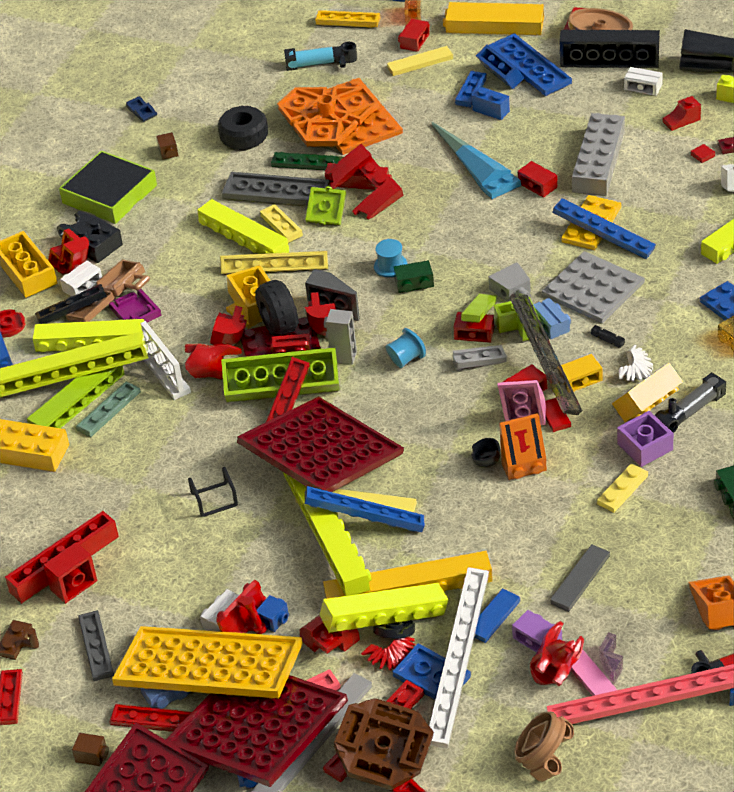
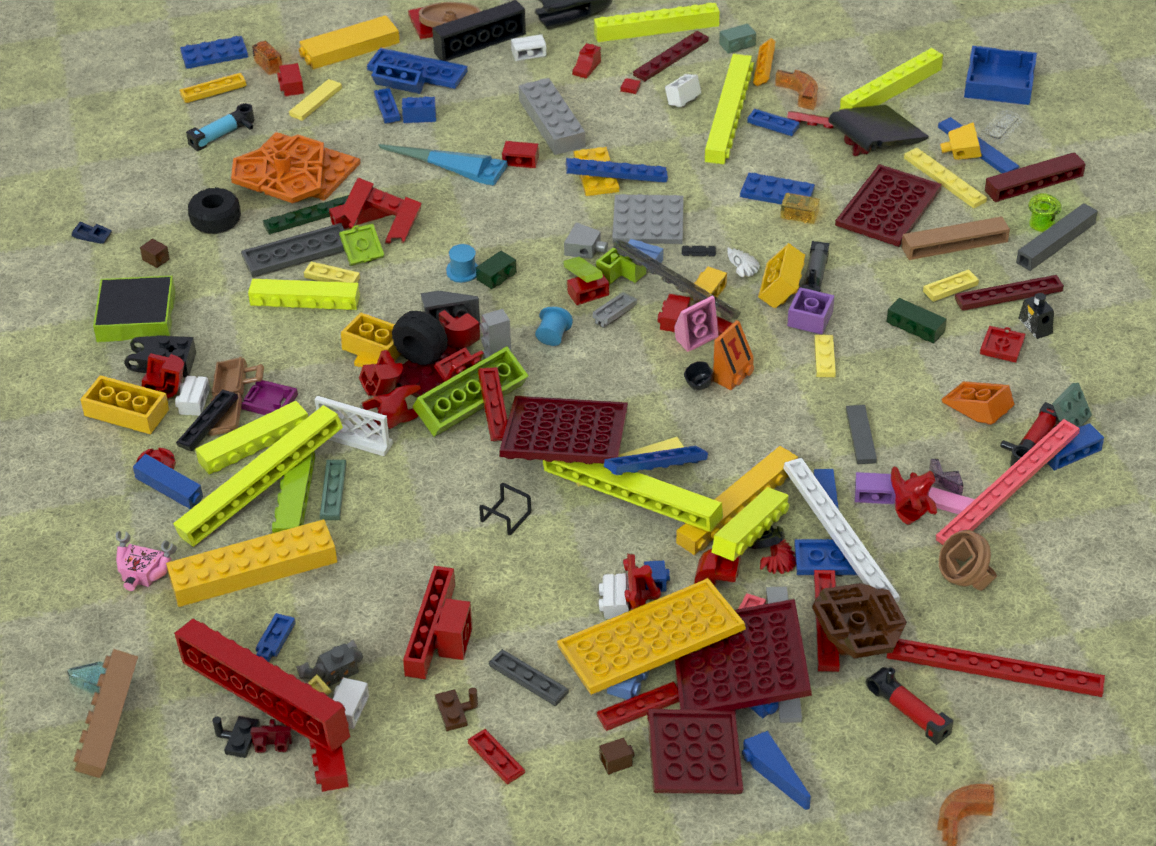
camera: 40 degrees left, 0 degrees up
(275, 261) = (367, 305): light yellow tile -> none

